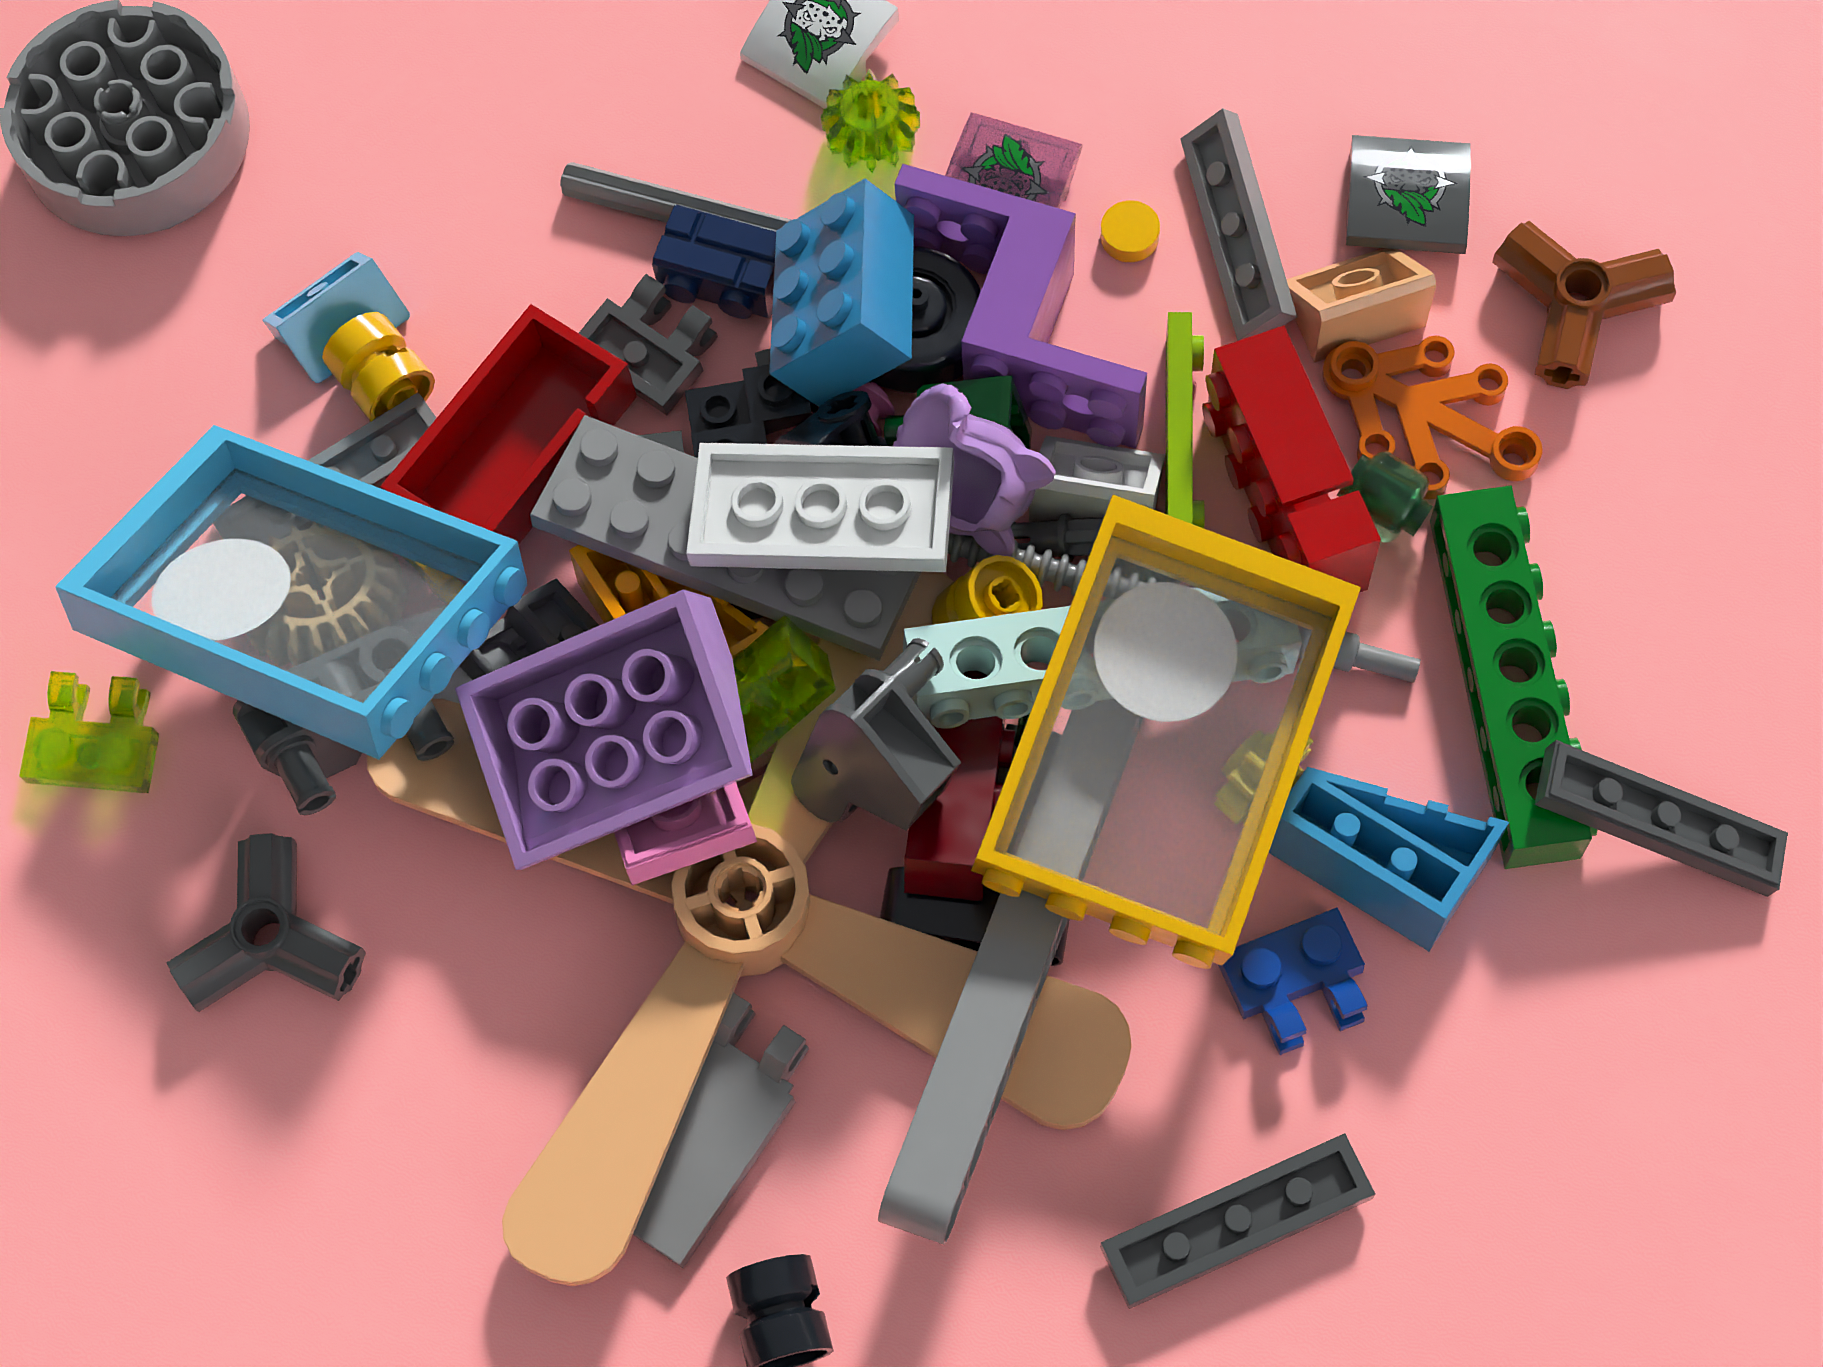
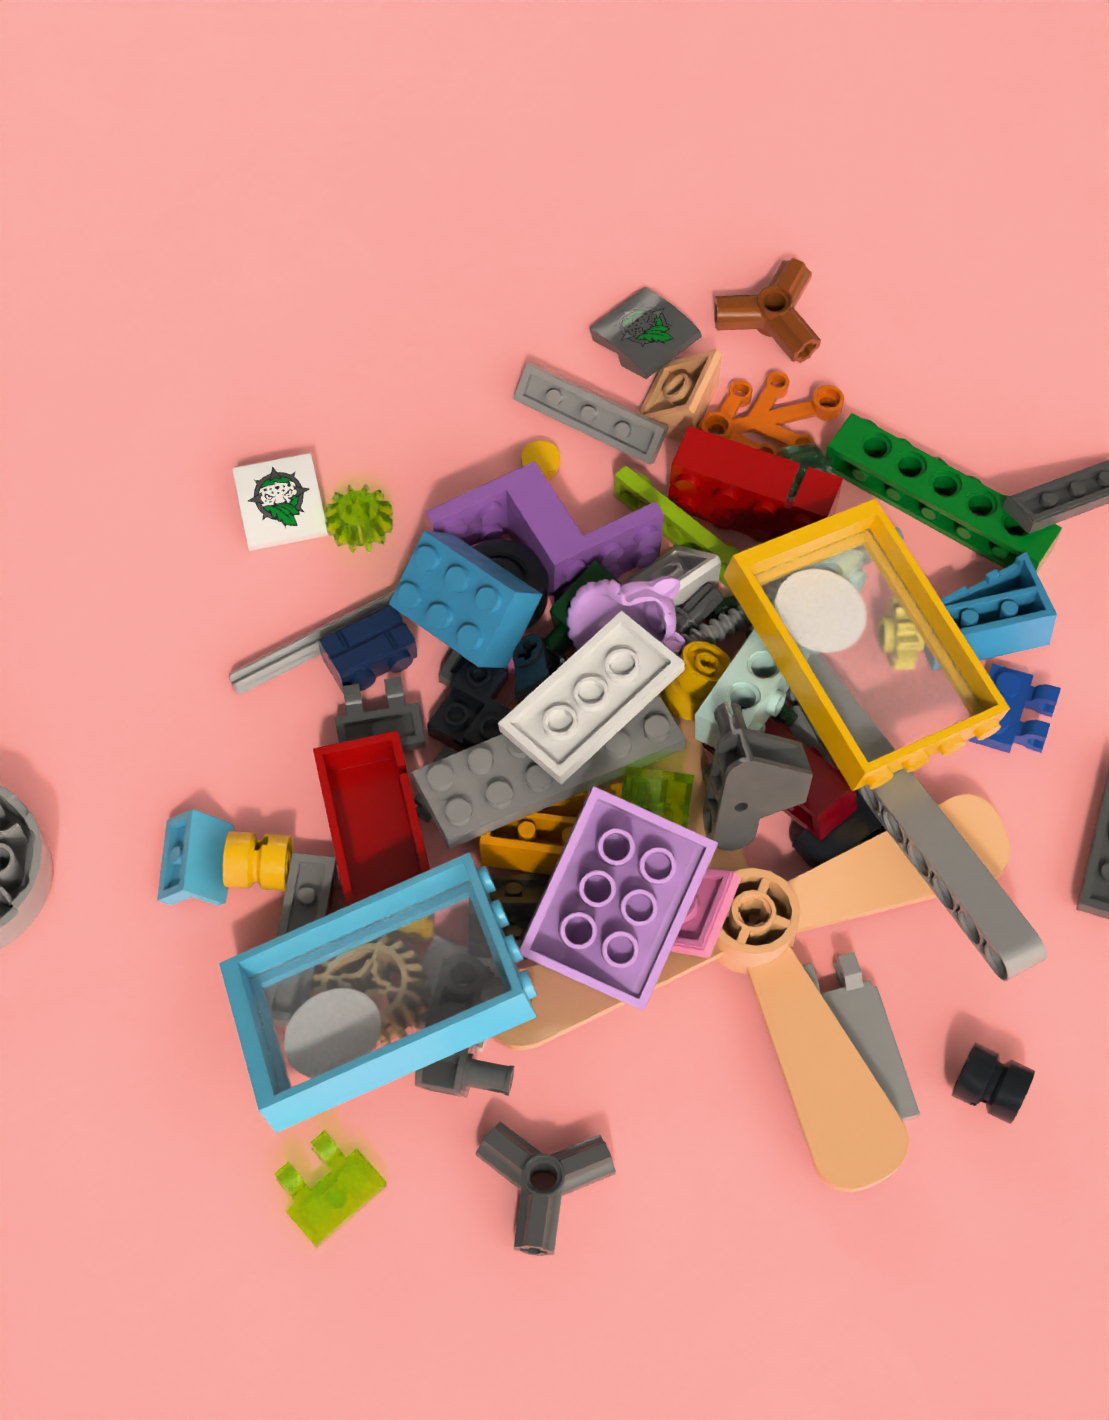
camera: 55 degrees left, 5 degrees down
(1015, 160) = (449, 475): clear purple slope -> none

